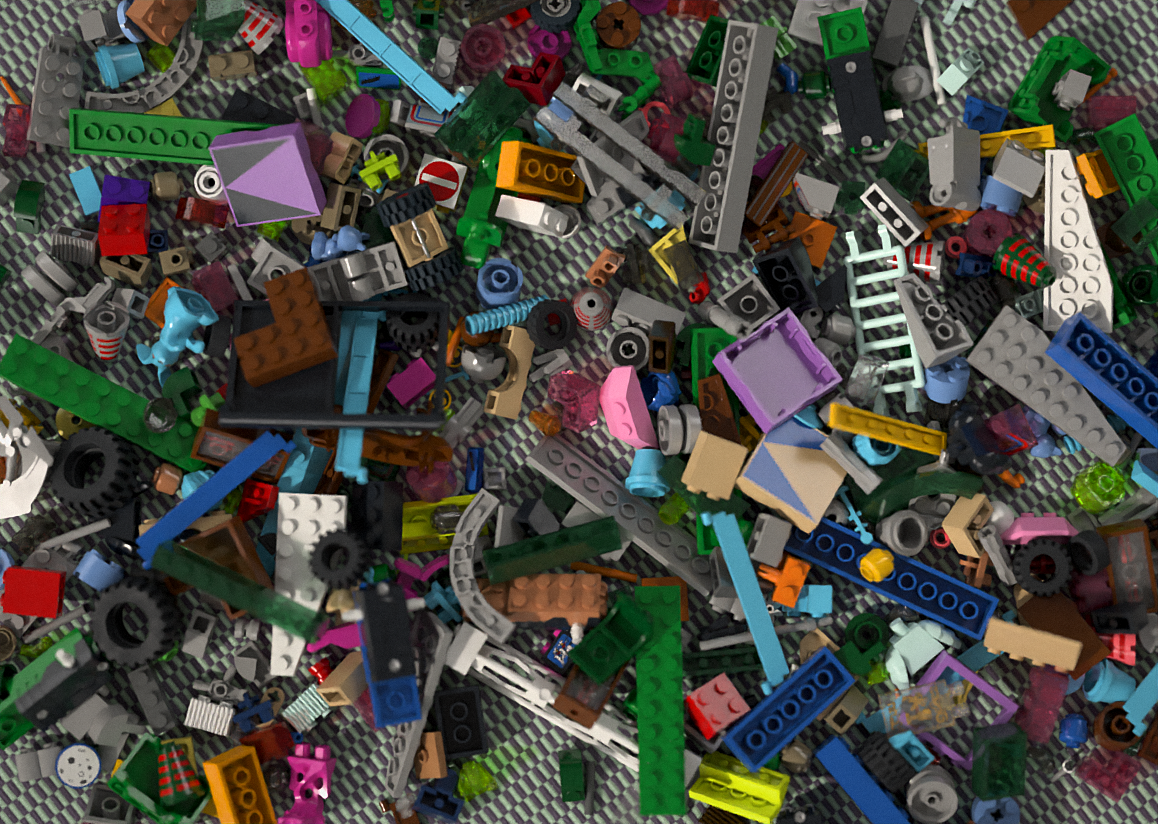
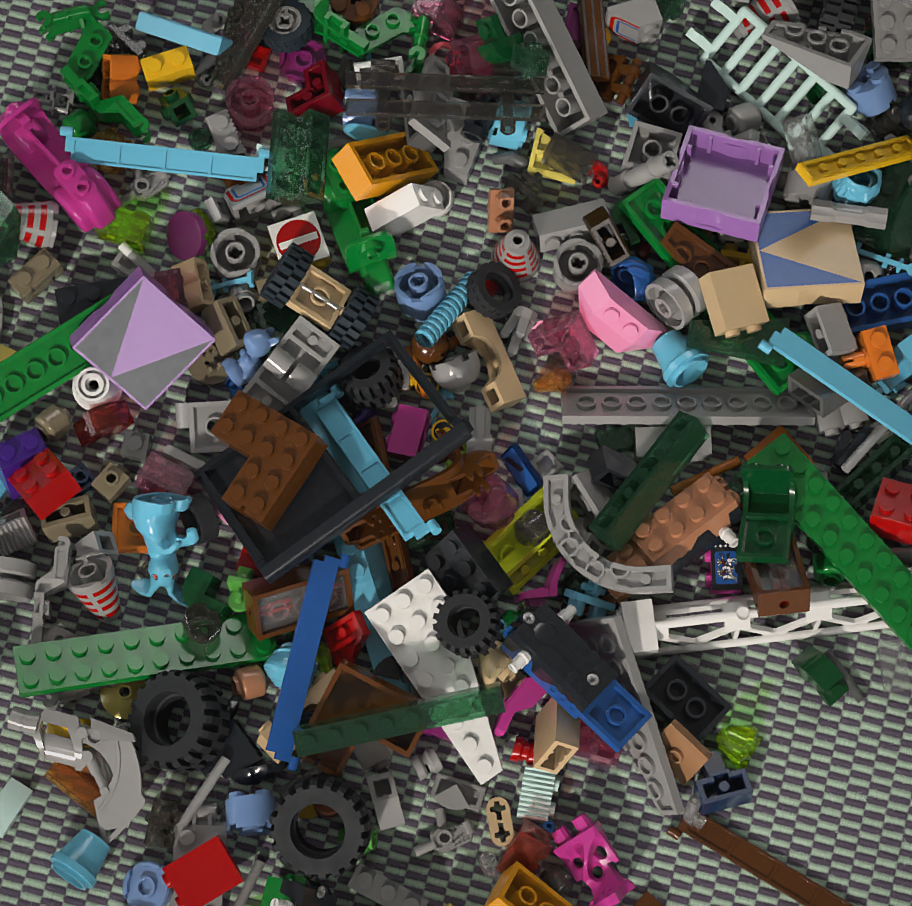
camera: 35 degrees left, 10 degrees down
(210, 715) = (453, 869): white brick -> none
(245, 718) = (487, 845): dark blue hips -> none
(272, 229) = (177, 393): clear neon green tile -> none
(377, 78) = (175, 195): slope -> none
(378, 166) = (236, 261): lime hips -> none
(673, 510) = (725, 373): clear neon green brick -> none
(705, 173) = (530, 59): none -> clear green brick
(810, 417) = (780, 206): medium azure dish -> none
(814, 235) = (662, 53): orange plate -> none

